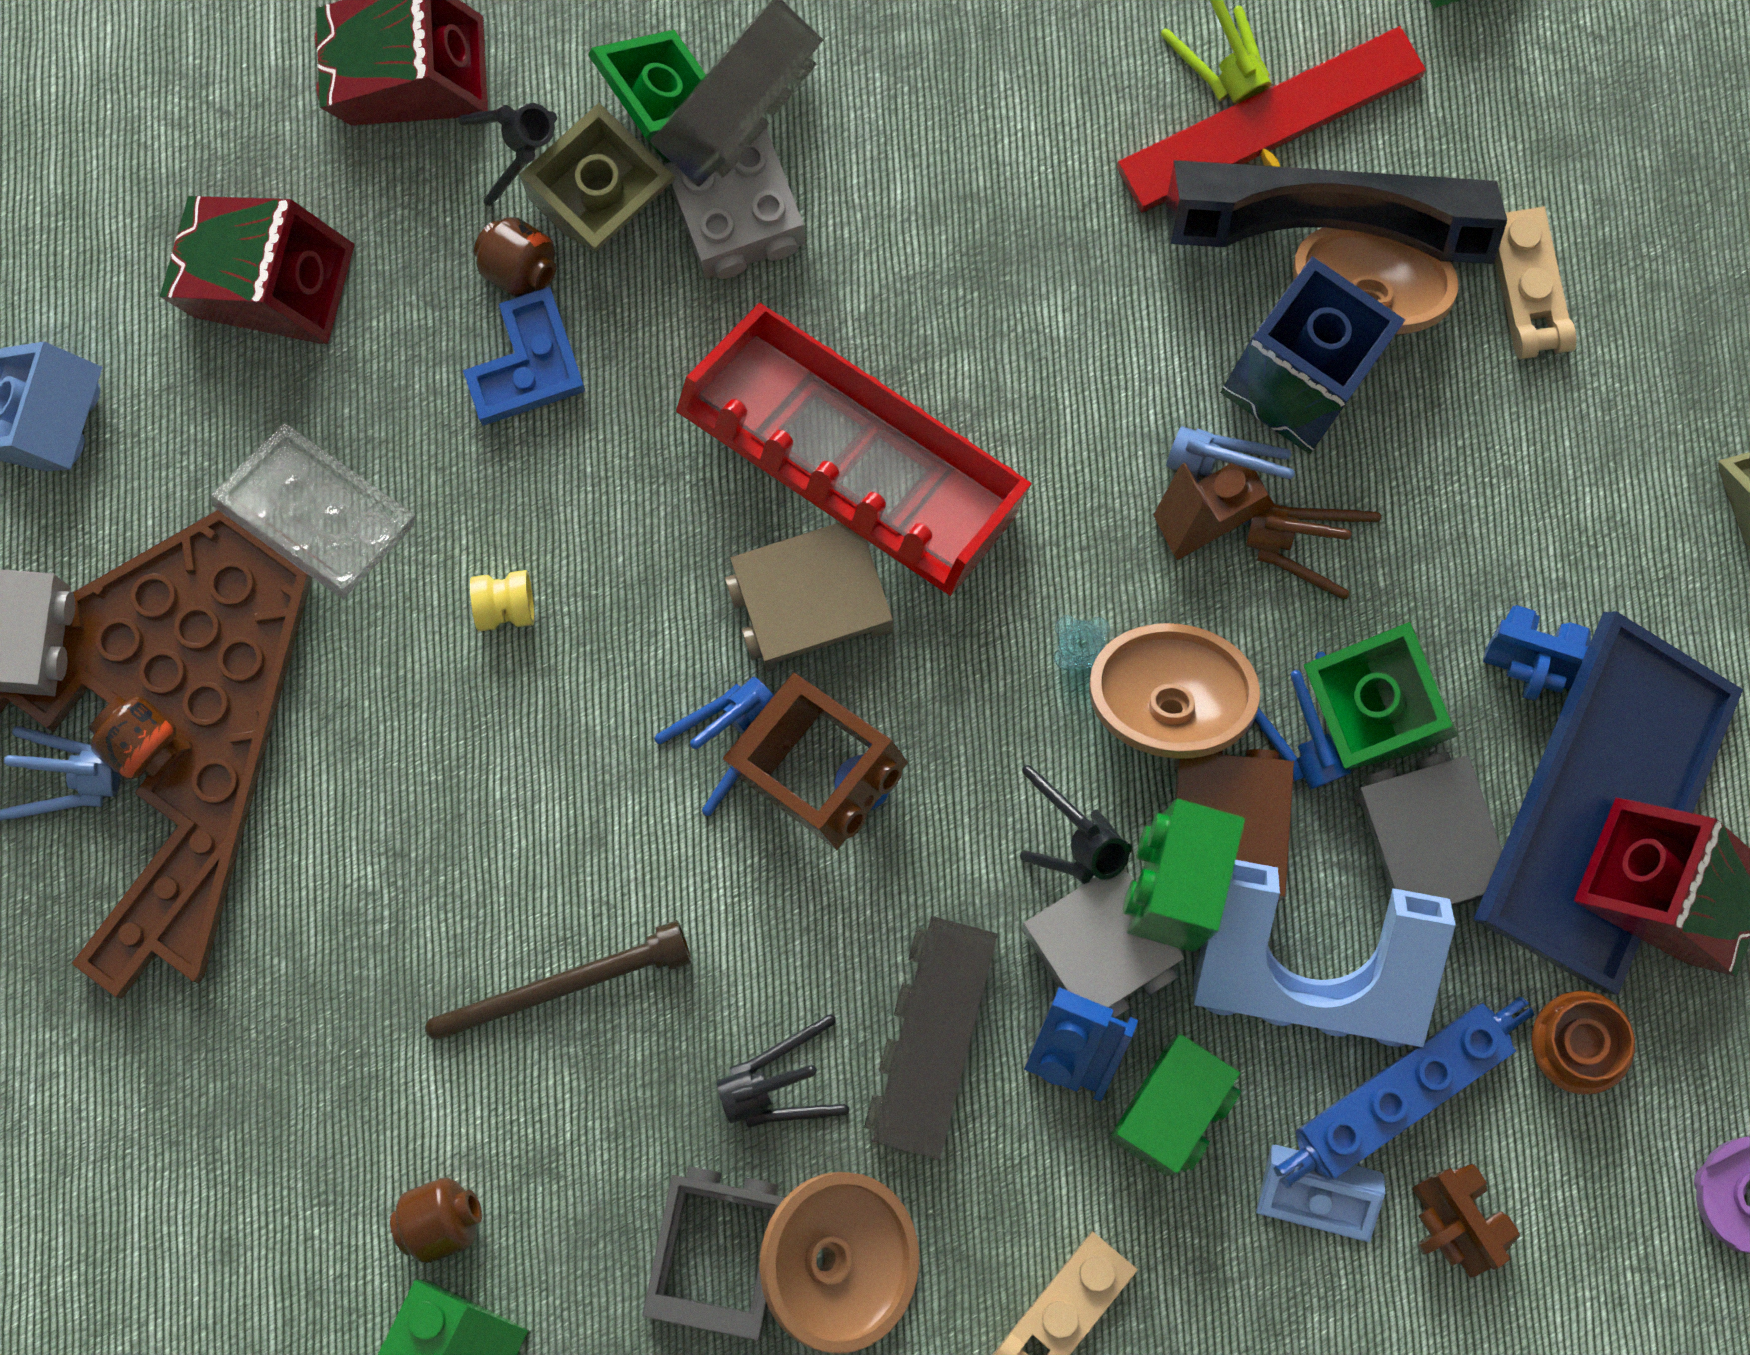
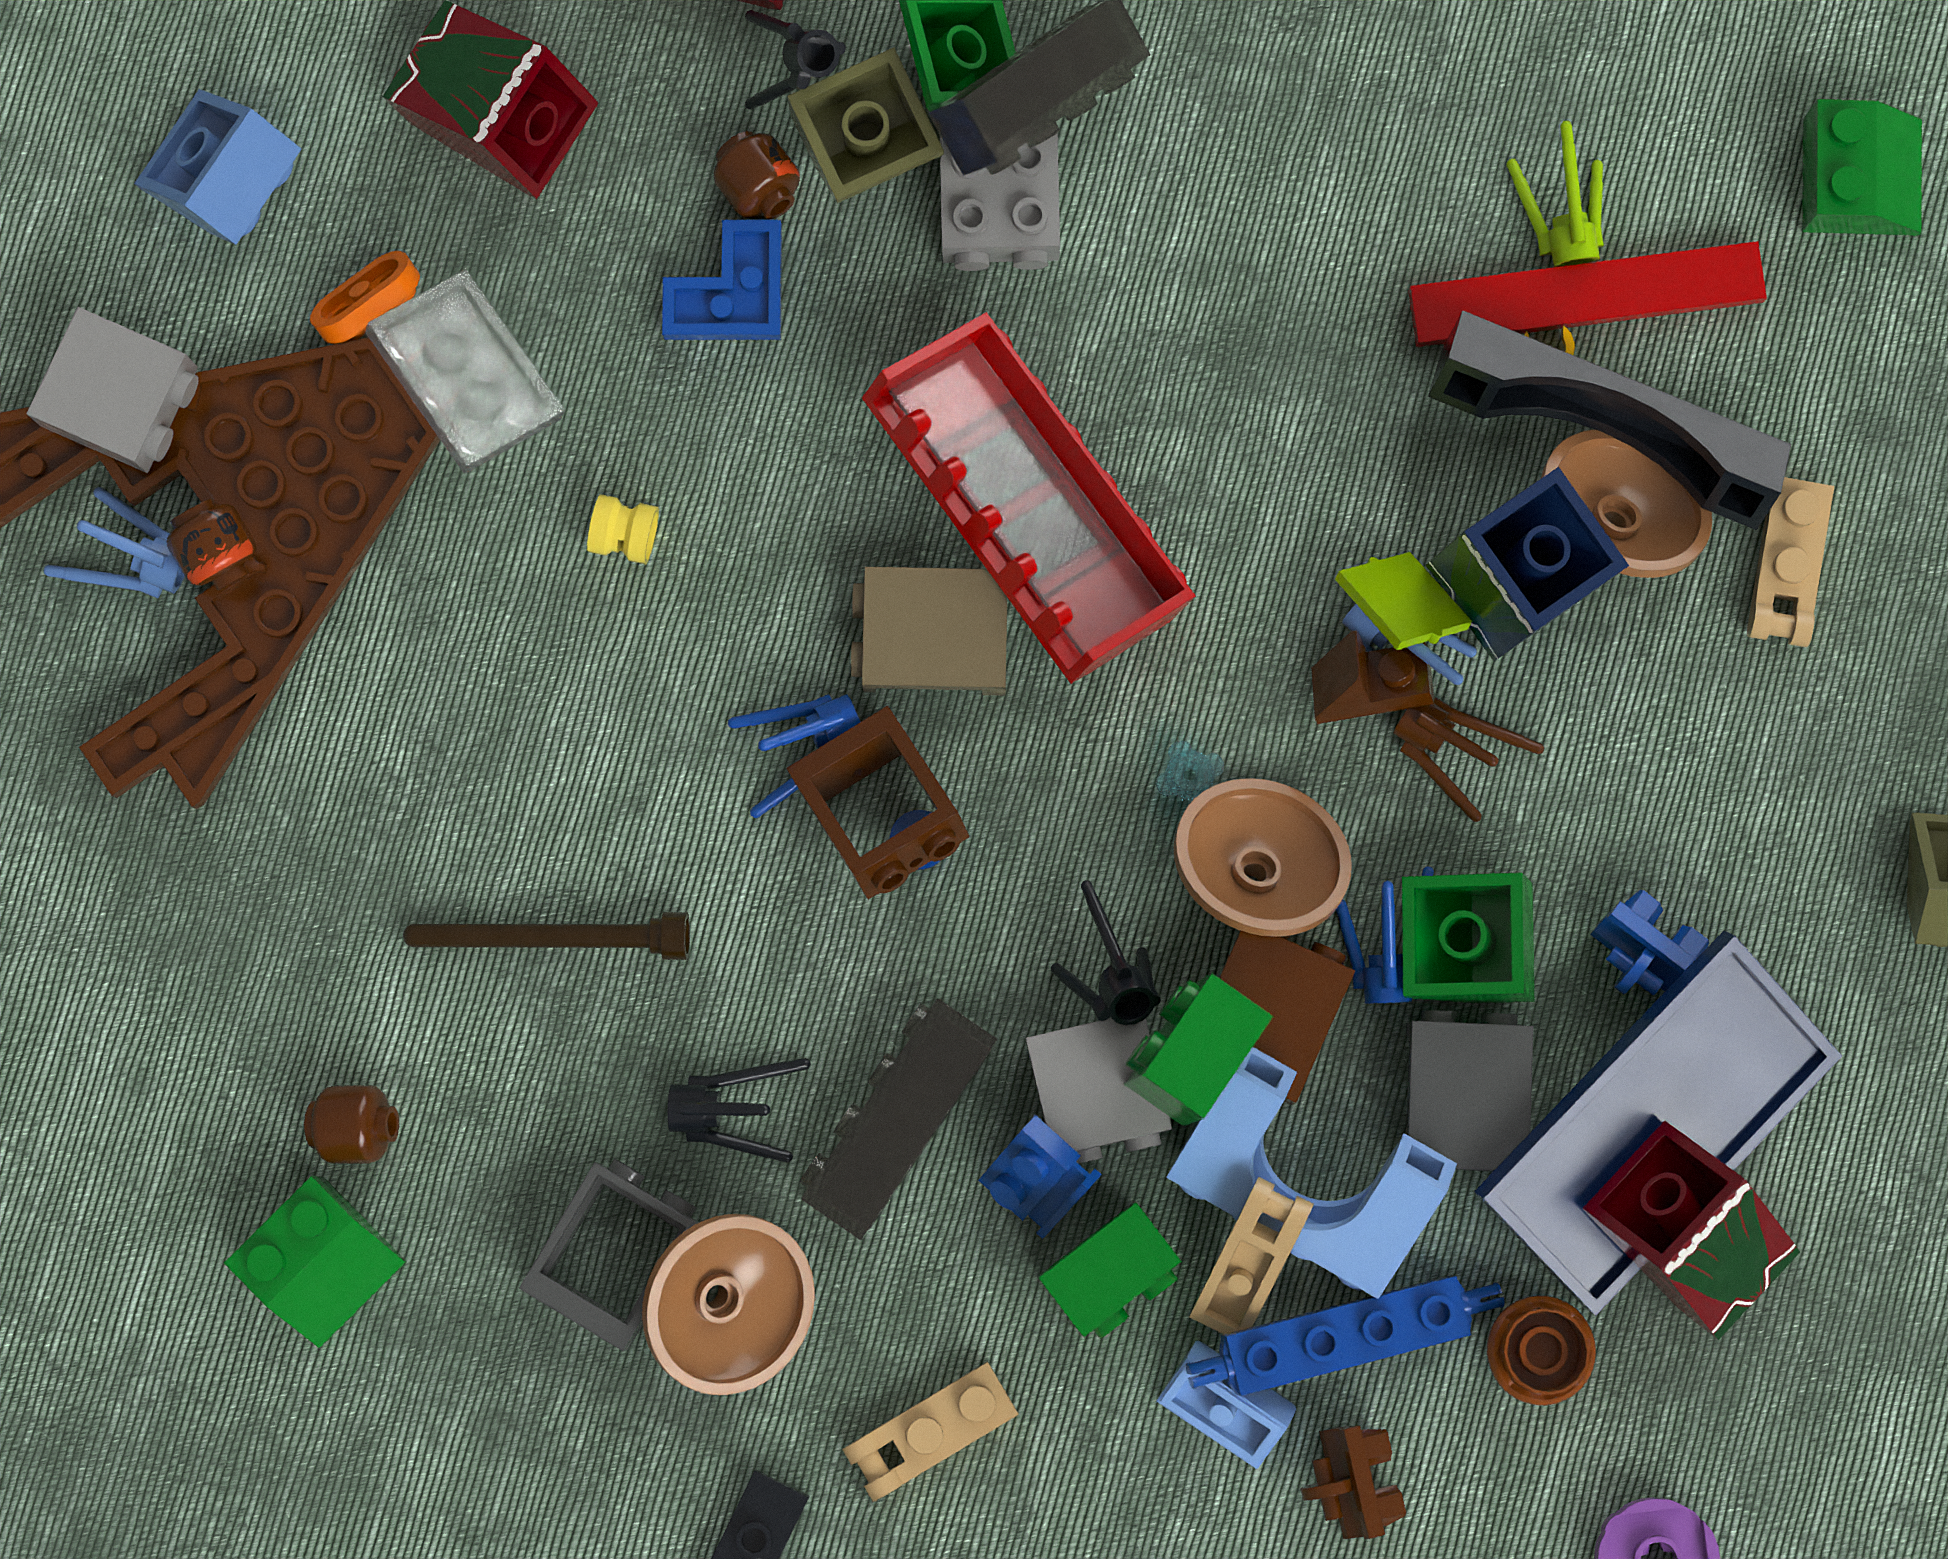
camera: 20 degrees right, 5 degrees up
(208, 467) = (365, 296): none -> orange plate
(1214, 426) = (1403, 600): none -> lime piece
(1297, 1052) = (1250, 1260): none -> tan plate

